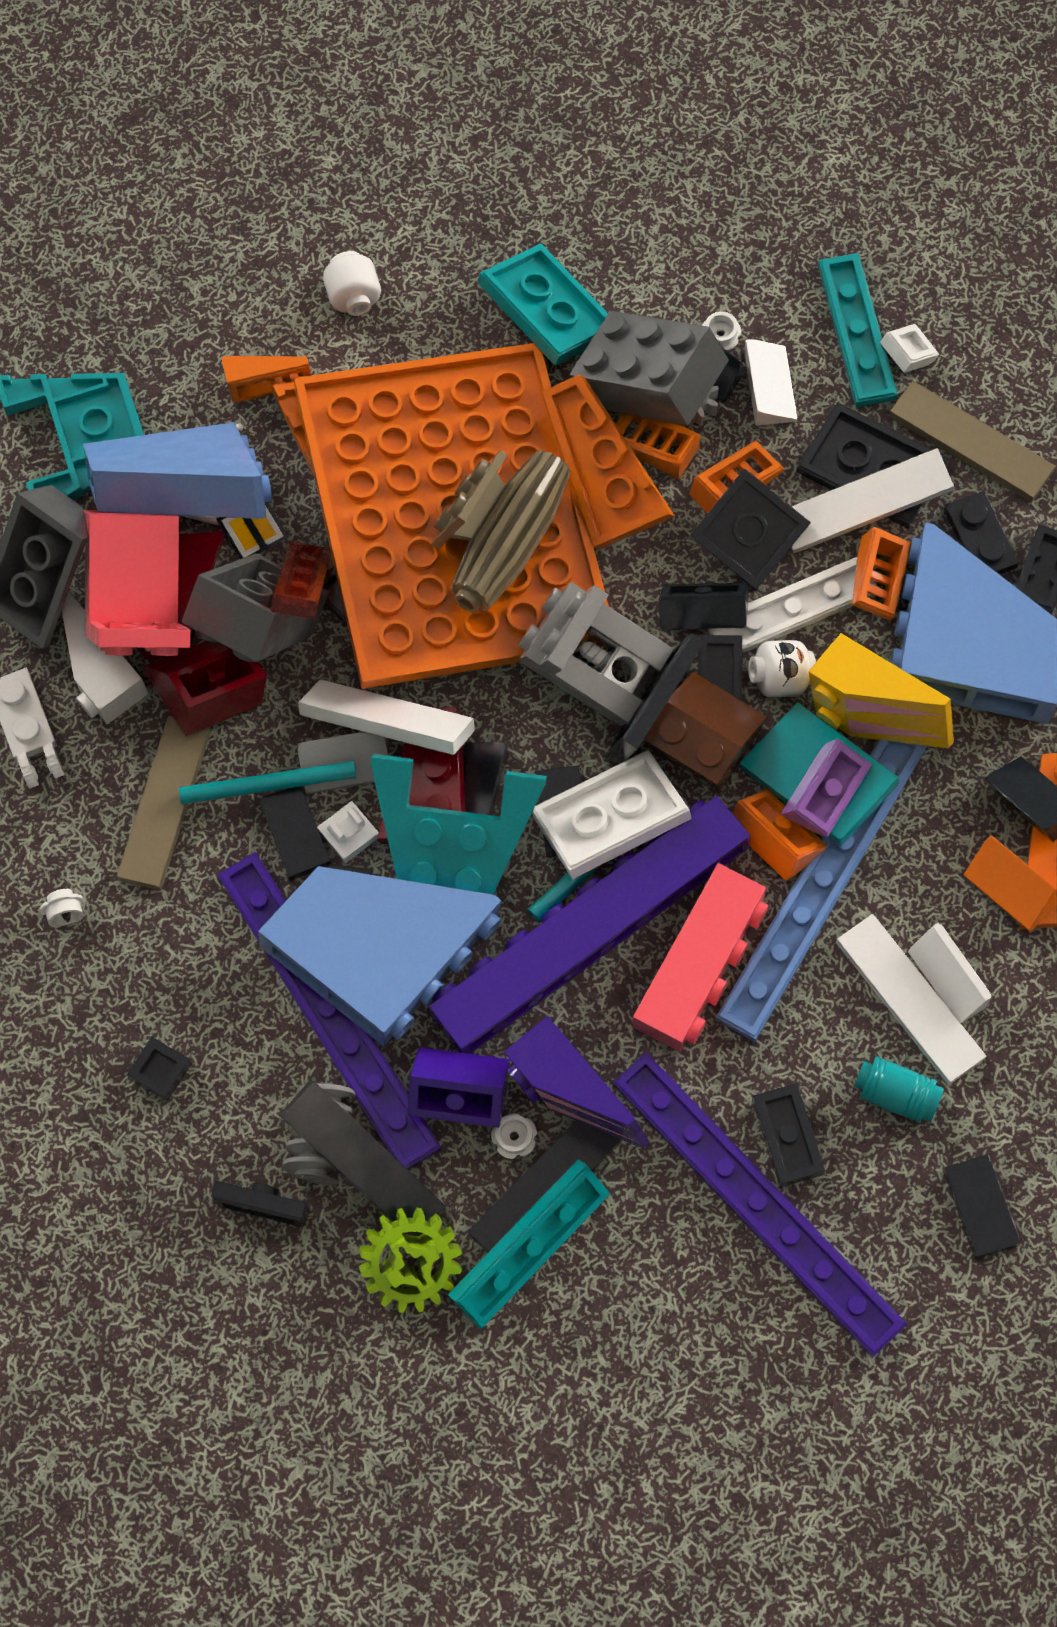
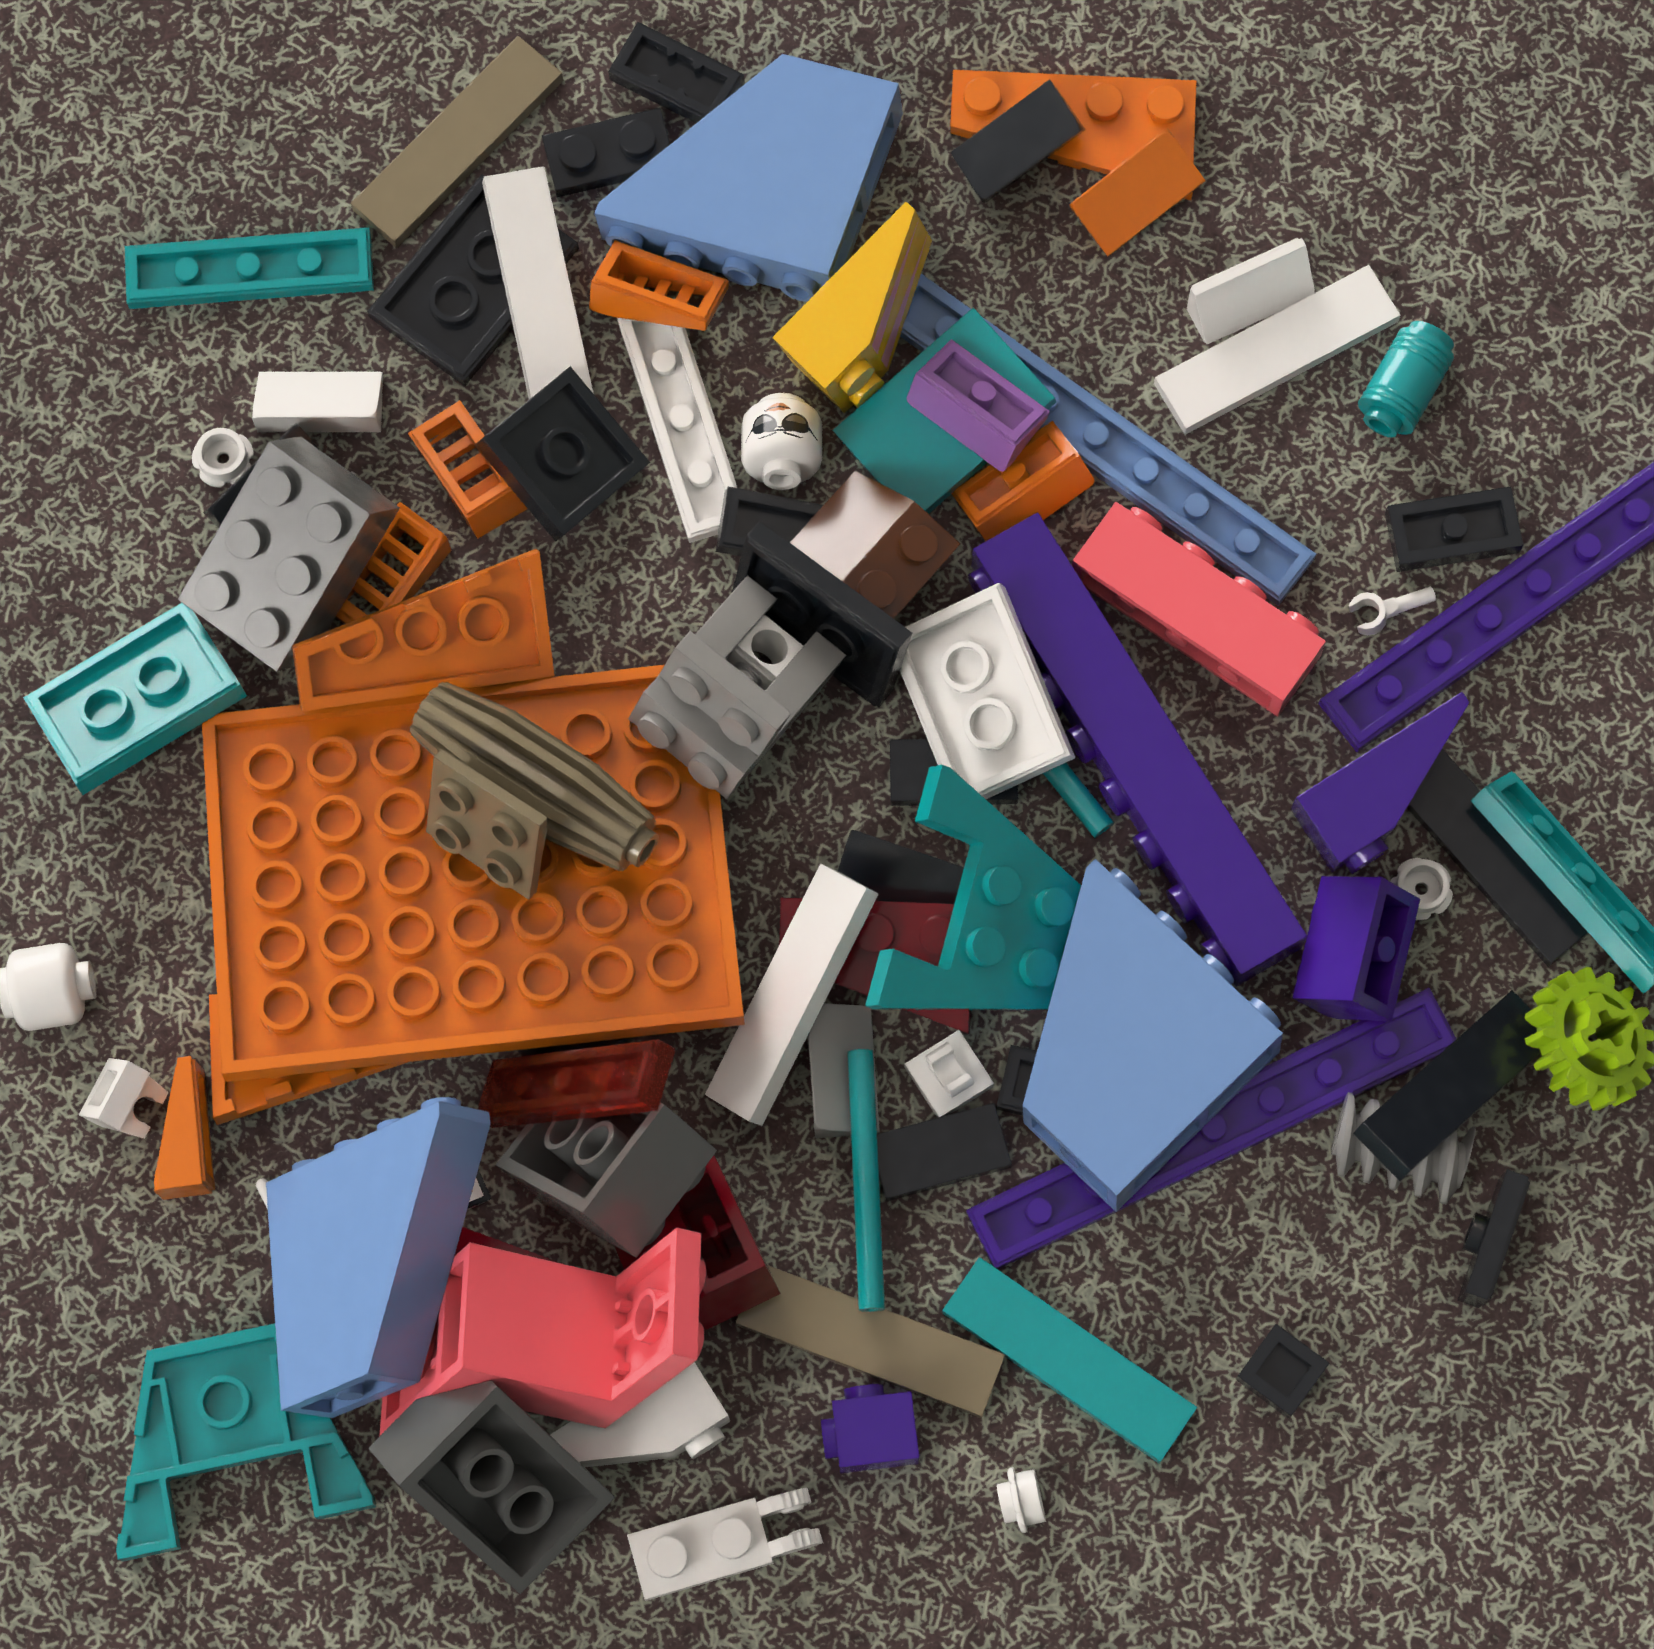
camera: 85 degrees left, 5 degrees up
(100, 806) = (871, 1430): none -> dark purple brick
(159, 931) = (1069, 1360): none -> teal tile
(282, 332) = (115, 1095): none -> white tile
(703, 605) = (666, 535): black slope -> none
(724, 1098) = (1389, 607): none -> white hand
(909, 348) = (296, 199): white tile -> none
(981, 1206) = (1566, 304): black tile -> none

